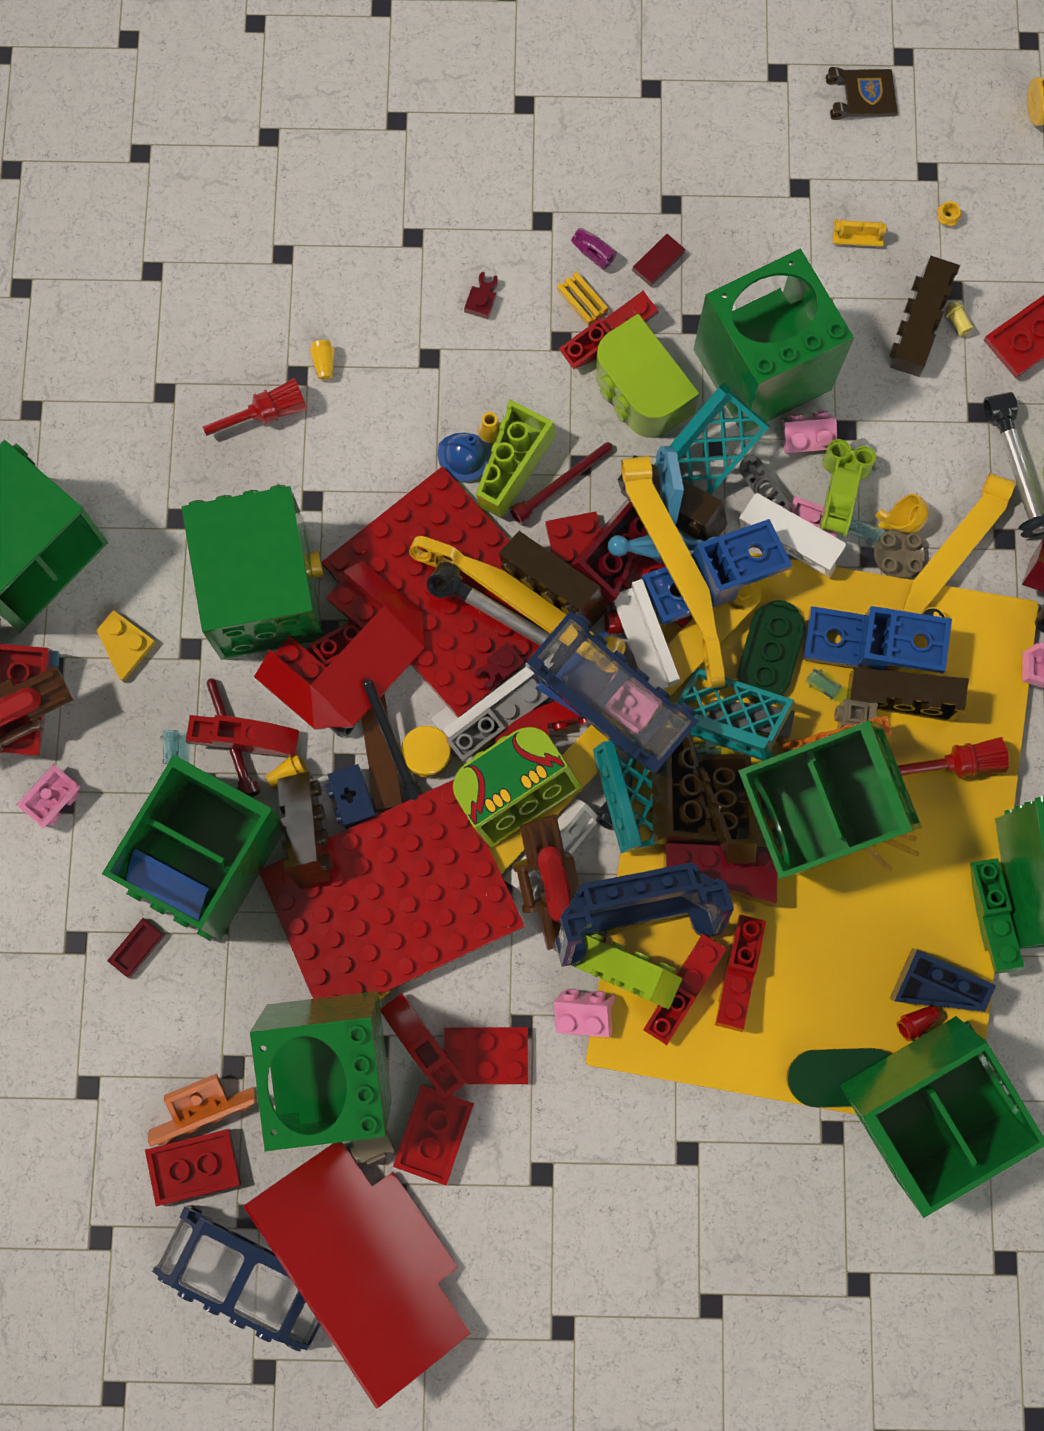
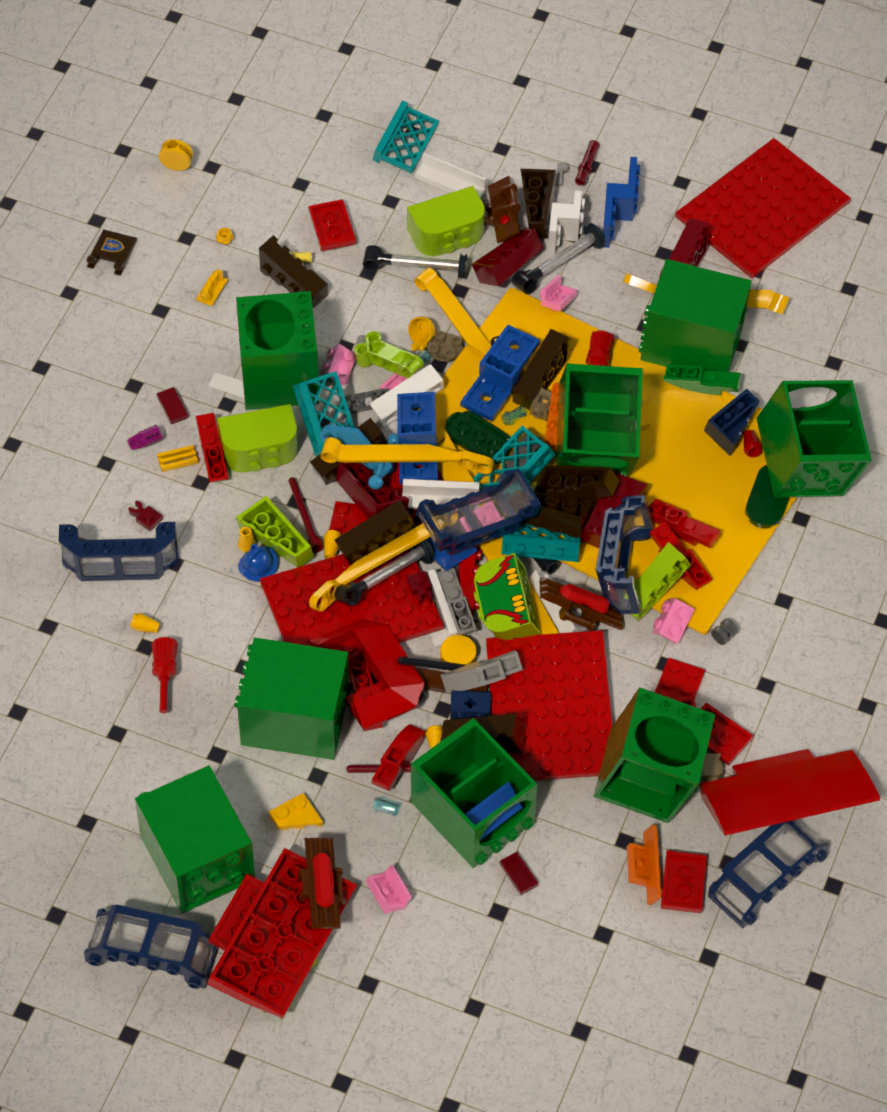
camera: 70 degrees left, 20 degrees down
(390, 793) = (481, 673): none -> light grey slope
(424, 334) = (119, 557): none -> dark blue windscreen
(532, 528) = (330, 545): none -> yellow cone
(597, 1089) = (724, 631): none -> dark grey wheel

